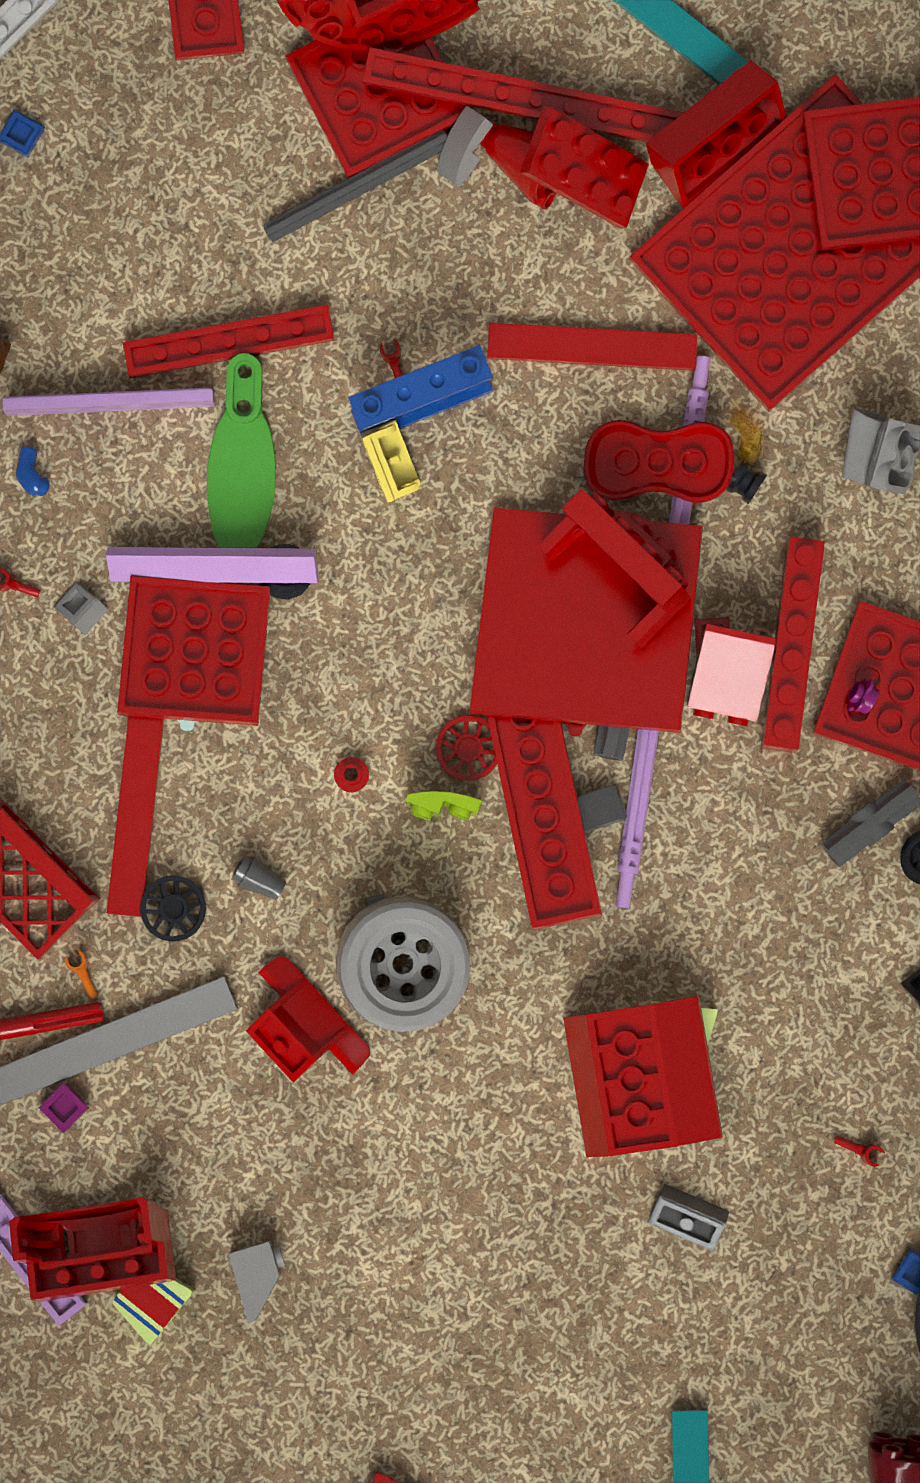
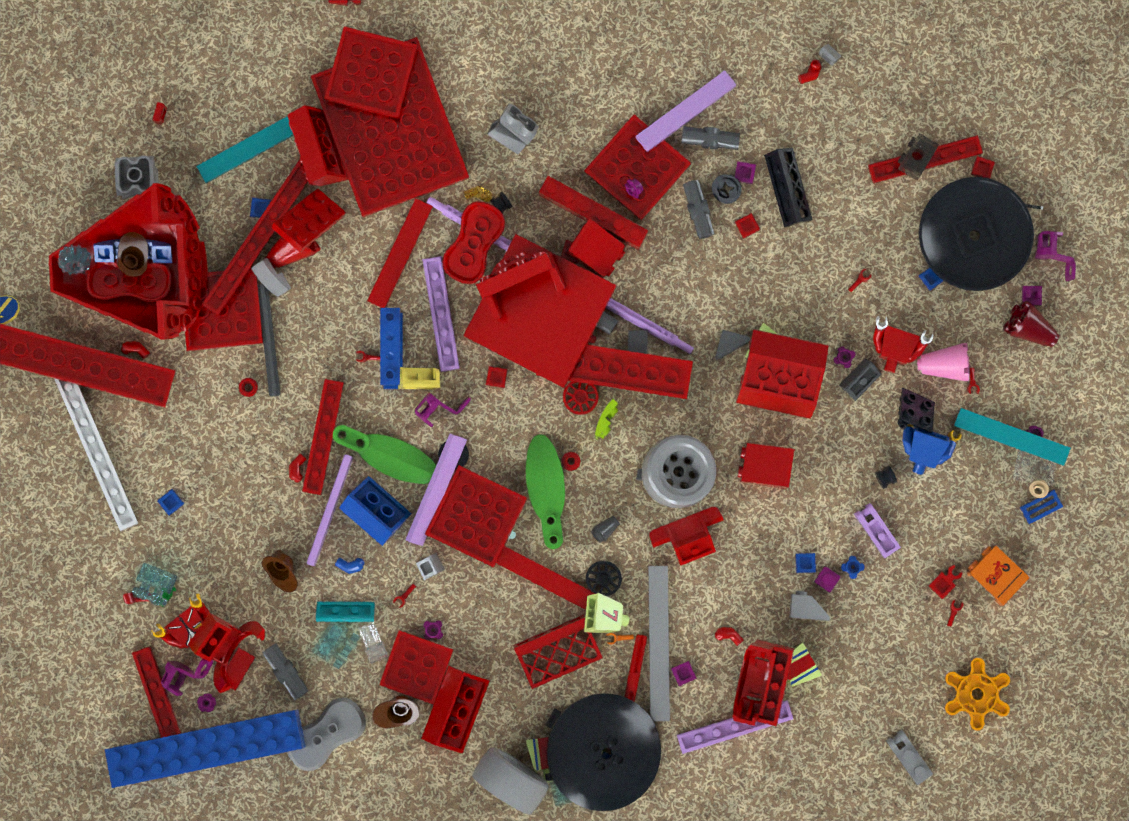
camera: 70 degrees left, 0 degrees up
(109, 933) = (604, 615): none -> yellowish green torso
(138, 477) = (375, 510): none -> blue slope
(157, 315) = (294, 468): none -> red arm
(162, 1158) = (728, 633): none -> red arm
(264, 172) = (243, 383): none -> red plate
(290, 749) = (546, 487): none -> bright green plant
(320, 1292) = (827, 579): none -> magenta plate
(334, 1244) = (805, 563): none -> blue tile
(358, 501) = (433, 403): none -> magenta piece
(361, 1338) = (852, 572): none -> blue plate
(436, 1348) = (877, 531): none -> lavender plate
(446, 592) = (496, 377): none -> red tile
(473, 1110) = (766, 465): none -> red slope
(516, 456) = (441, 314): none -> lavender tile
(535, 1326) = (886, 477): none -> black wheel
(577, 77) = (258, 207): none -> blue tile
(615, 1377) = (927, 448): none -> blue torso
(661, 966) = (730, 342): none -> dark grey slope
(670, 1334) = (916, 411): none -> black hinge
(707, 1180) = (844, 352): none -> magenta plate
(762, 1414) = (972, 382): none -> red hand
(772, 1259) = (897, 345): none -> red torso
(775, 1356) = (946, 363): none -> bright pink cone
(877, 918) = (747, 225): none -> red tile

